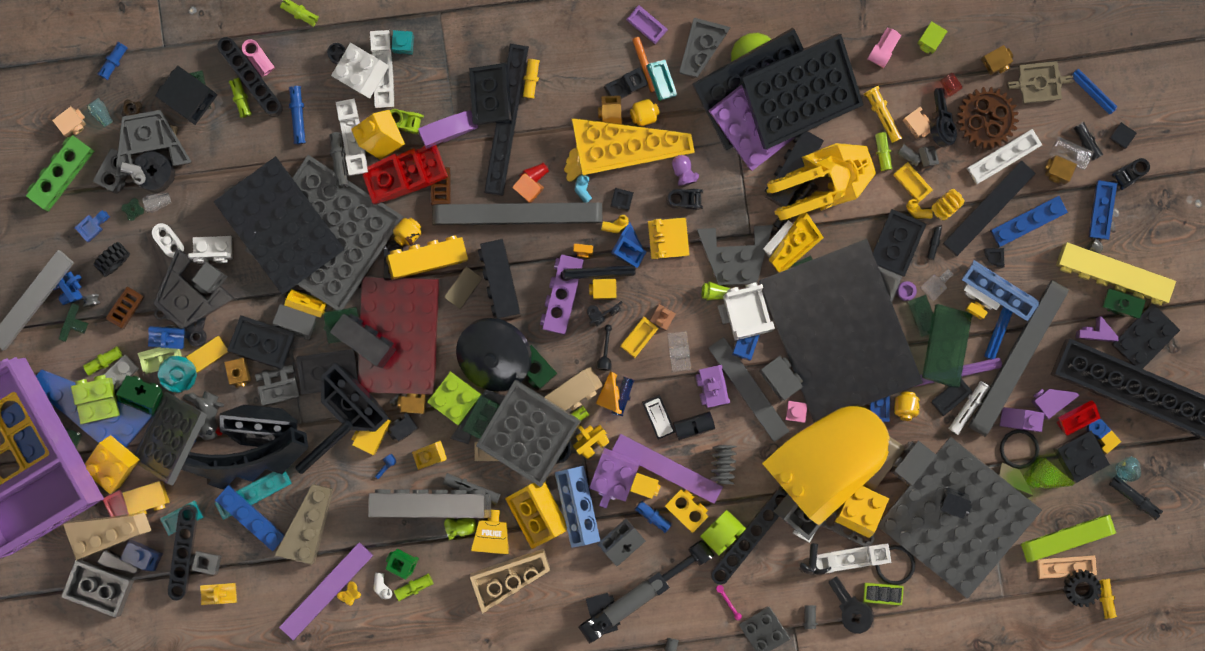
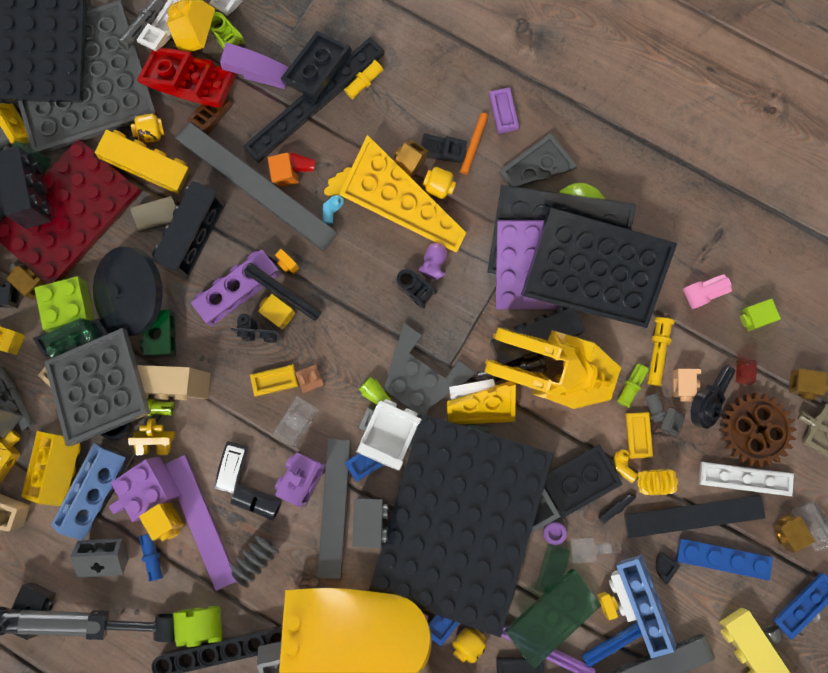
camera: 45 degrees right, 5 degrees down
(604, 362) = (223, 378): black hinge -> none
(610, 394) = (203, 411): light orange tile -> none
(617, 226) = (334, 265): yellow arm -> none
(622, 199) = (358, 245): black tile -> none
(624, 393) = (214, 422): clear blue pin -> none
(629, 247) = (329, 290): blue slope -> none
(661, 80) = (478, 167): tile -> none
(668, 238) = (372, 311): yellow hinge -> none
(683, 514) = (178, 576): yellow brick -> none
(796, 411) = (361, 565): bright pink plate -> none

